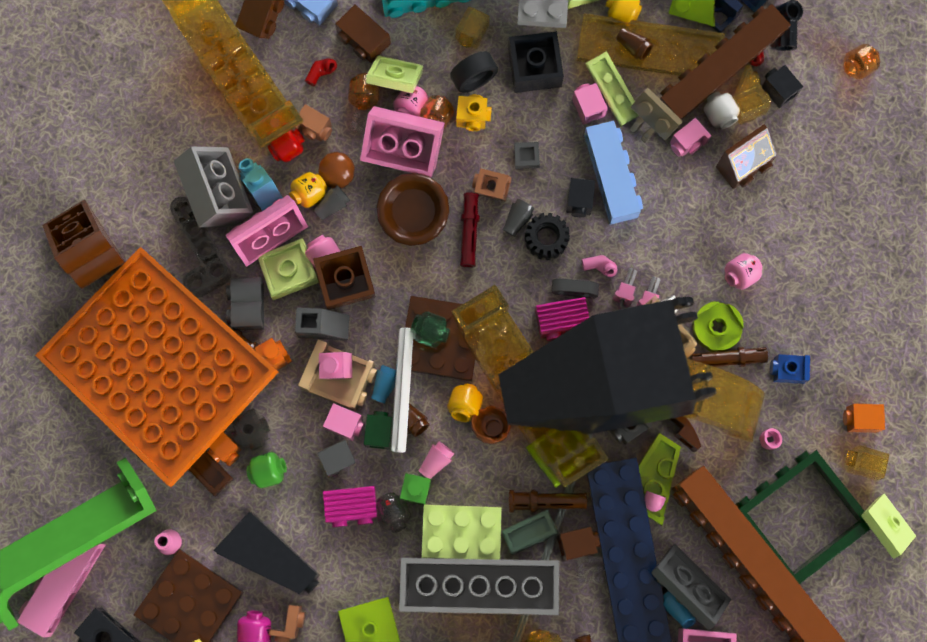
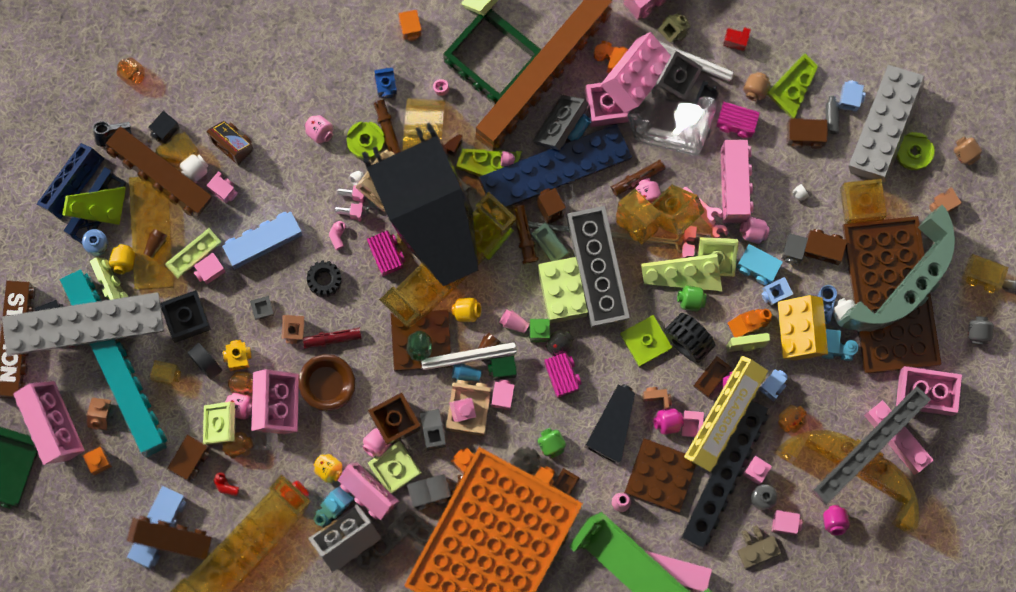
camera: 110 degrees left, 0 degrees up
(315, 124) = (271, 475): nougat brick -> none
(331, 203) = (334, 447): dark grey cone -> none
(336, 458) = (530, 393): dark grey panel -> none
(337, 169) = (305, 451): dark orange hair -> none
(490, 425) = (478, 287): dark orange hair -> none
(518, 216) = (313, 303): dark grey cone -> none
(575, 288) = (360, 249): dark grey beam -> none
(580, 197) = (288, 259): black brick -> none
(656, 115) = (210, 215): dark tan hinge -> none
(867, 462) = (442, 18): clear yellow brick -> none

